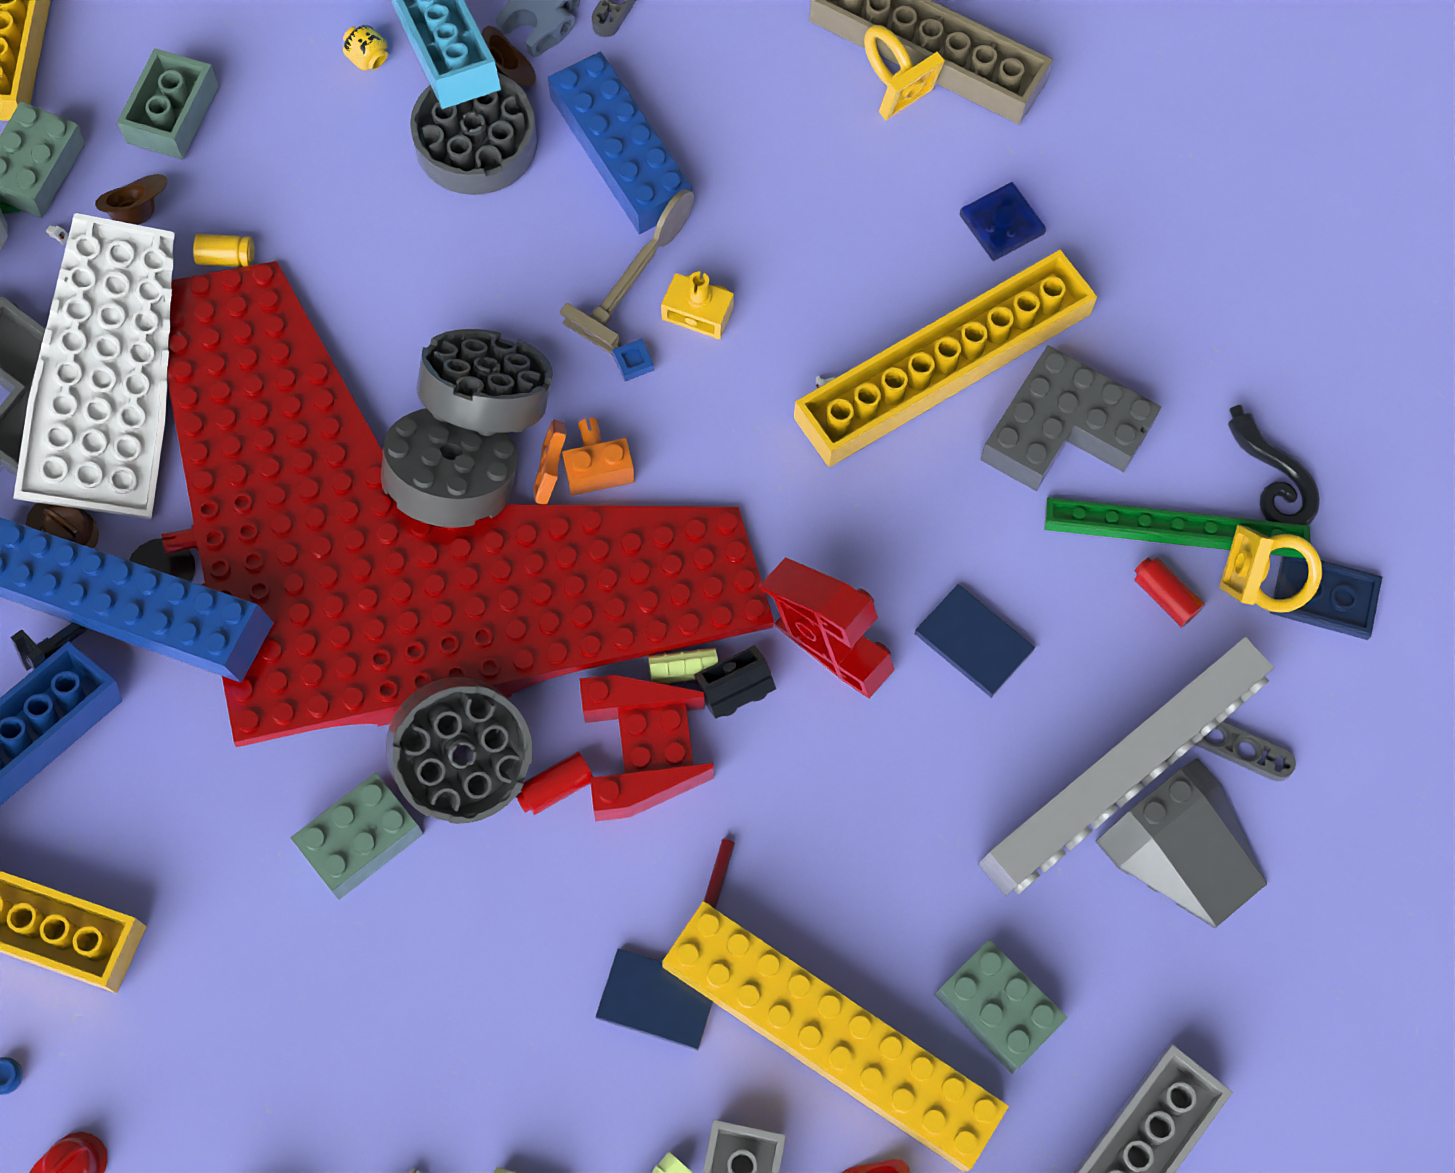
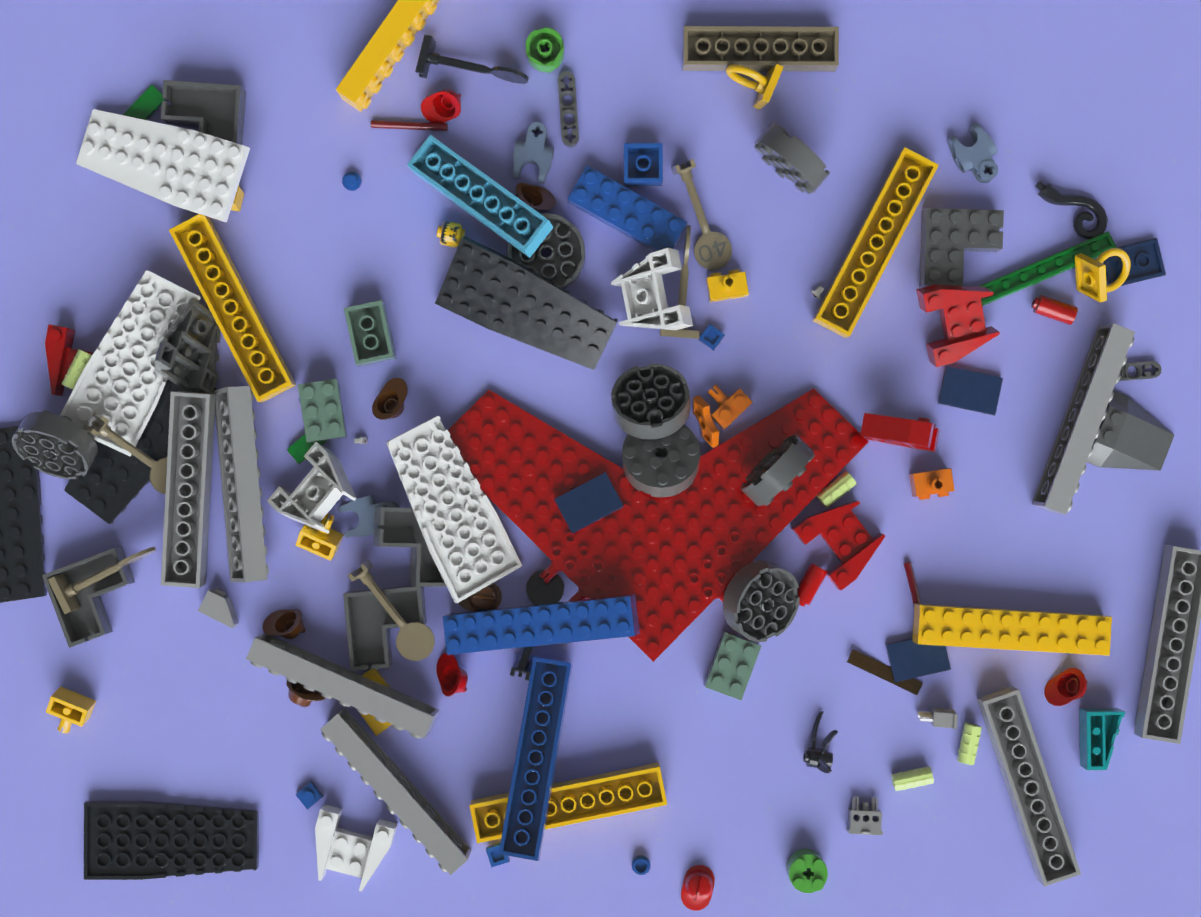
camera: 30 degrees left, 20 degrees up
(223, 250) = (457, 400): yellow piece -> none
(301, 469) = (589, 503): none -> dark blue tile
(397, 175) = (522, 305): none -> black wing
(398, 1066) = (819, 757): none -> black plant
(569, 243) = (646, 295): none -> white wedge
(586, 990) = (882, 671): none -> dark brown sticker
(599, 553) = (777, 470): none -> dark grey brick
(631, 1112) = (940, 717): none -> light grey piece
(679, 93) = (643, 164): none -> blue brick
(709, 245) = (712, 248): none -> dark tan piece
(735, 682) = (868, 484): black brick -> none
(836, 738) = (932, 482): none -> orange brick
(886, 174) = (791, 158): none -> dark grey brick
(1000, 1006) = (1081, 569): sand green brick -> none
(1004, 212) = (862, 133): clear blue plate -> none
(1014, 519) = (960, 318): none -> red wedge
(1162, 324) = (976, 157): none -> sand blue piece

